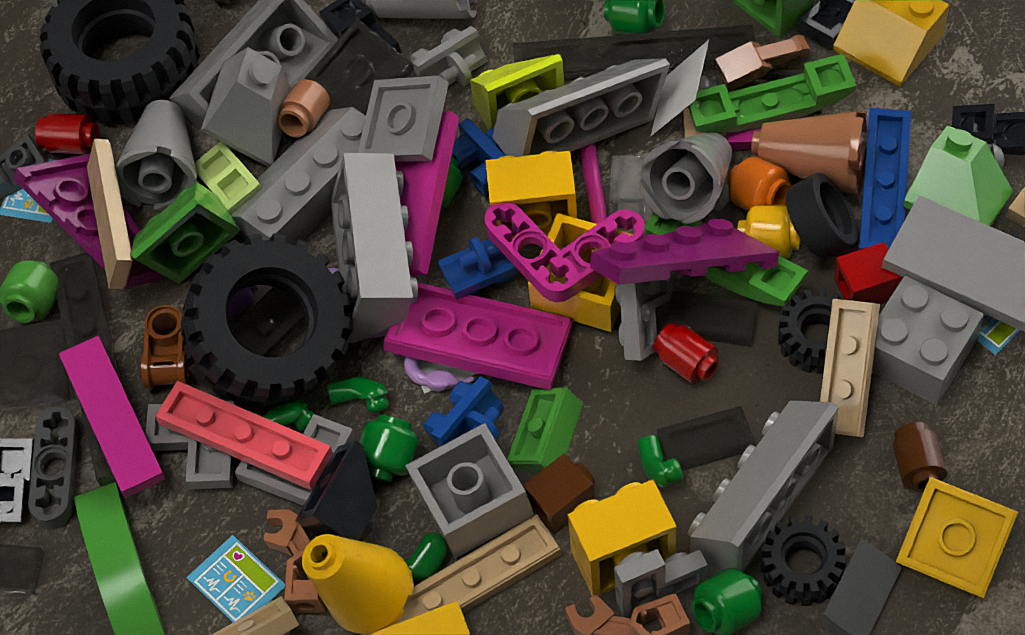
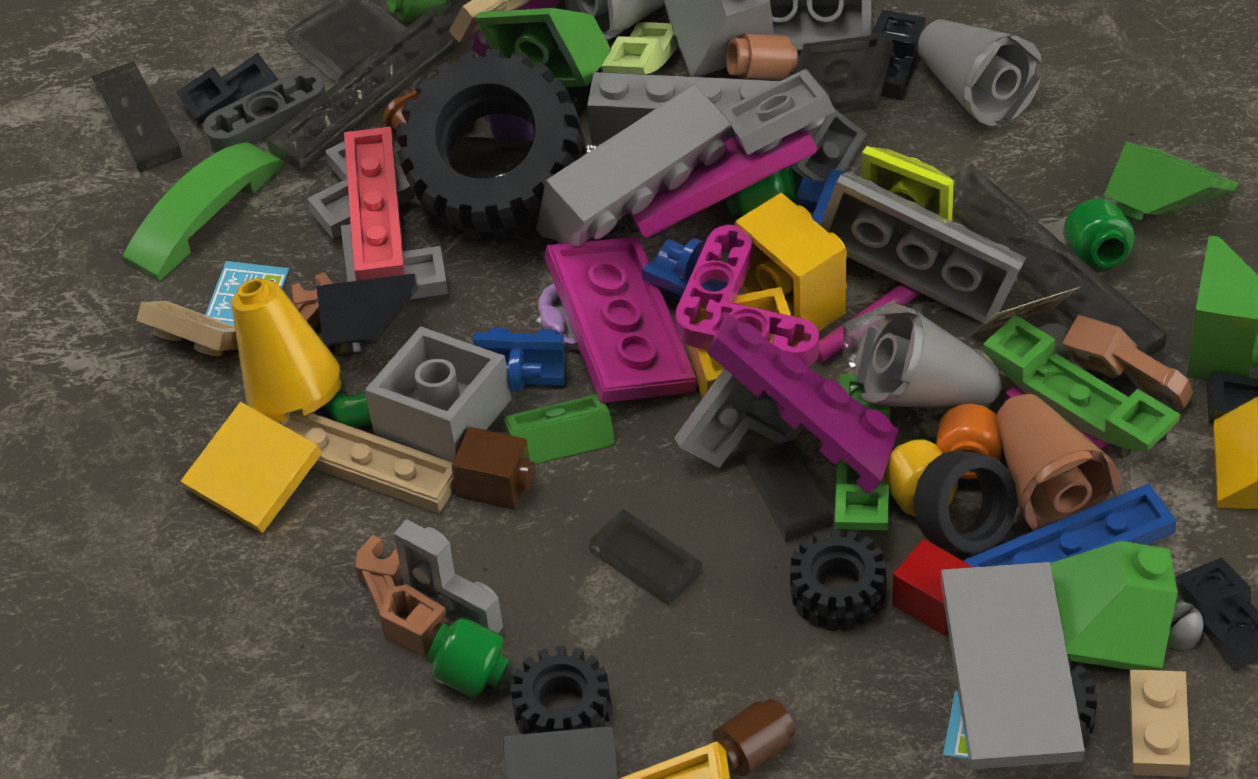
camera: 55 degrees right, 10 degrees down
(111, 417) = (330, 111): dark pink tile -> none
(292, 412) = (426, 230): green arm -> none
(360, 388) = (497, 267): green arm -> none
(388, 447) = (447, 311): green head -> none
(453, 58) = (911, 130): light grey hips -> none
(616, 527) = (477, 519): yellow brick -> none
(653, 463) = (578, 532): green arm -> none
(686, 353) = (725, 485): red brick -> none
(765, 484) = (614, 622): light grey slope -> none
(850, 362) = (798, 613): tan tile -> none
(923, 339) = (892, 667): light grey brick -> none

